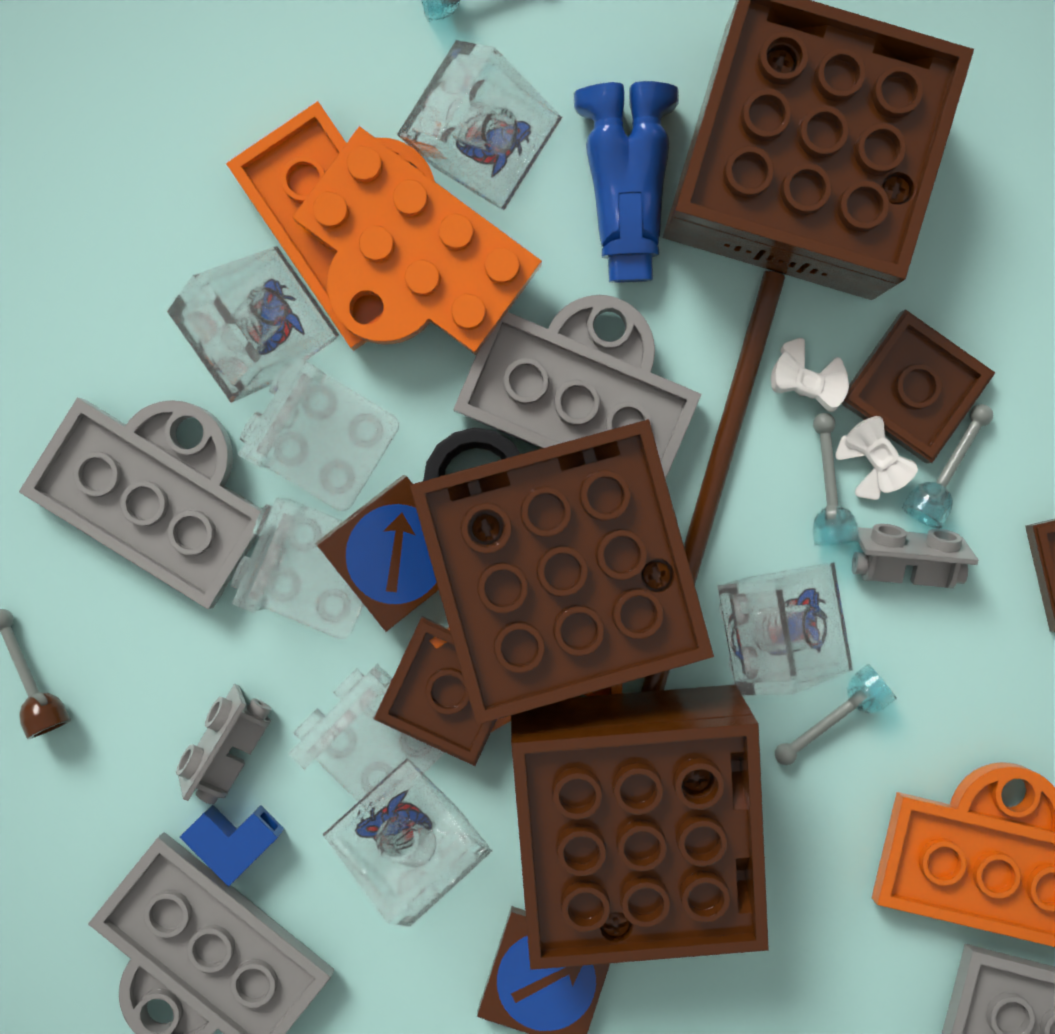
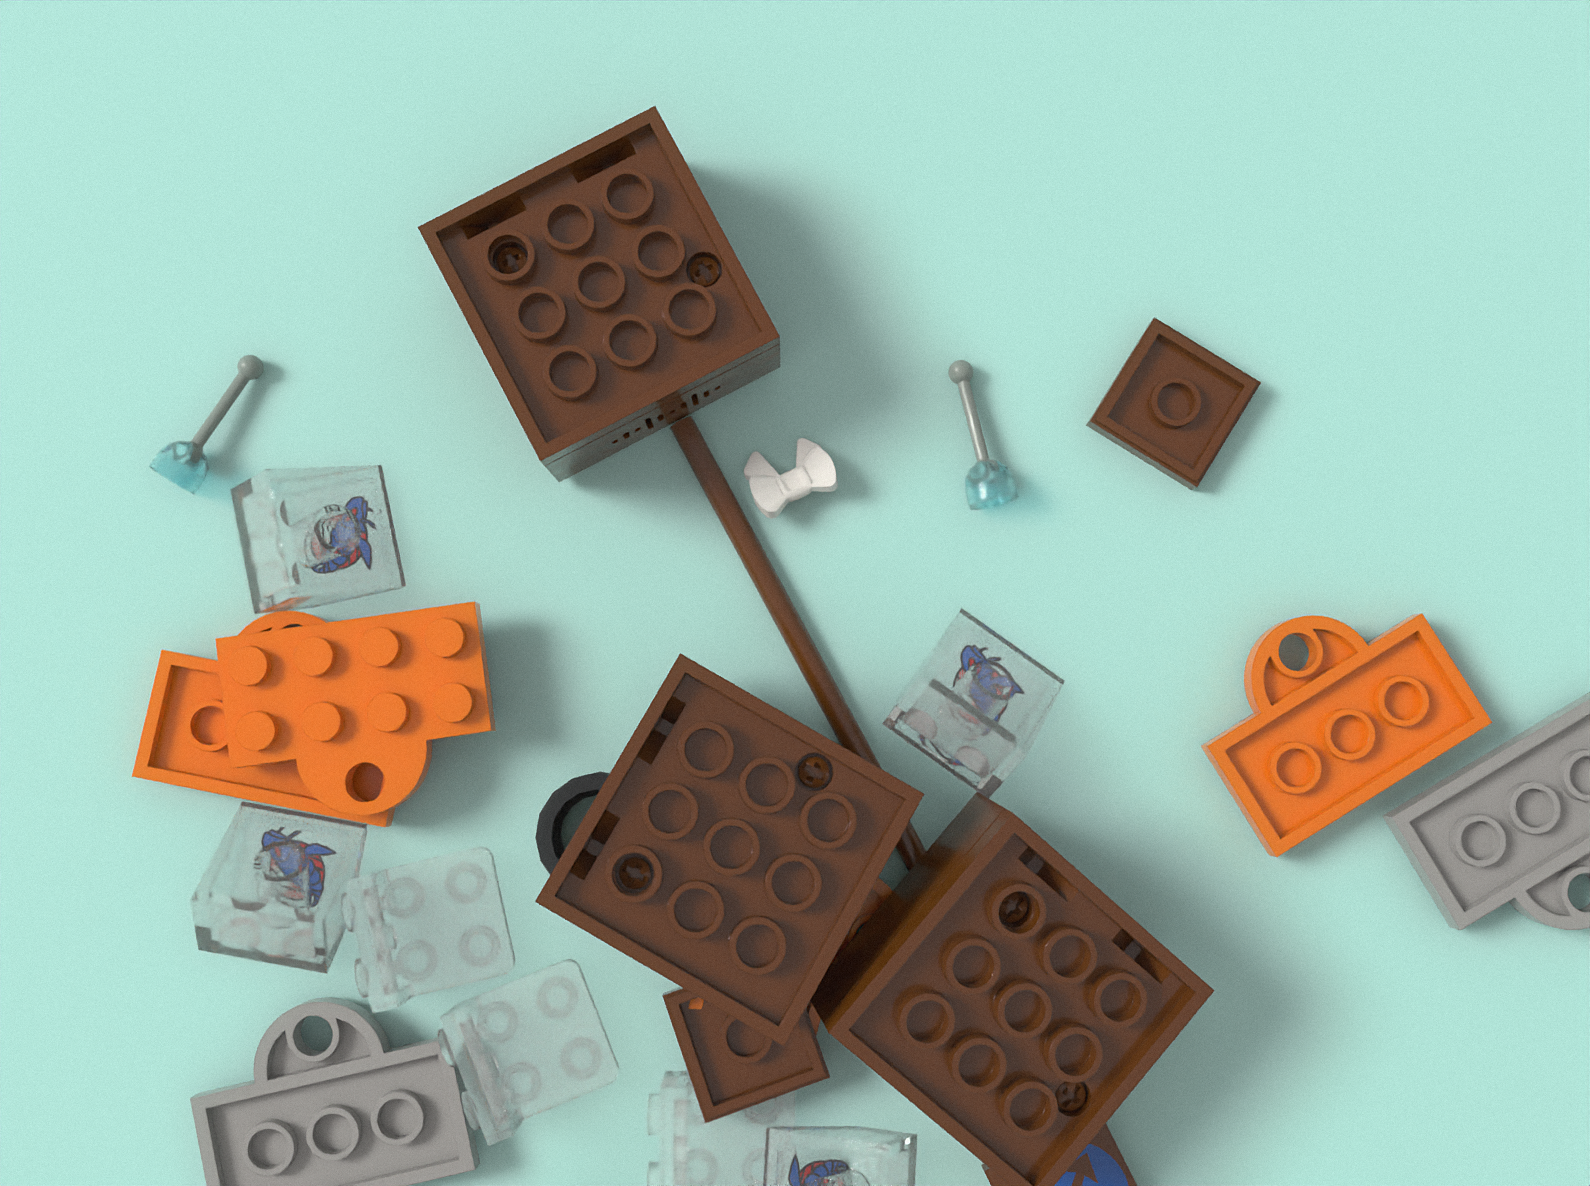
camera: 50 degrees left, 5 degrees down
(384, 555) = (578, 980): tile -> none
(572, 383) = (599, 672): light grey plate -> none
(628, 171) = (478, 458): blue piece -> none
(834, 522) = (928, 576): hinge -> none
(865, 693) = (1094, 691): hinge -> none
(890, 470) = (930, 488): white piece -> none
(917, 386) = (885, 401): reddish brown tile -> none
(936, 557) = (1036, 521): light grey hinge -> none

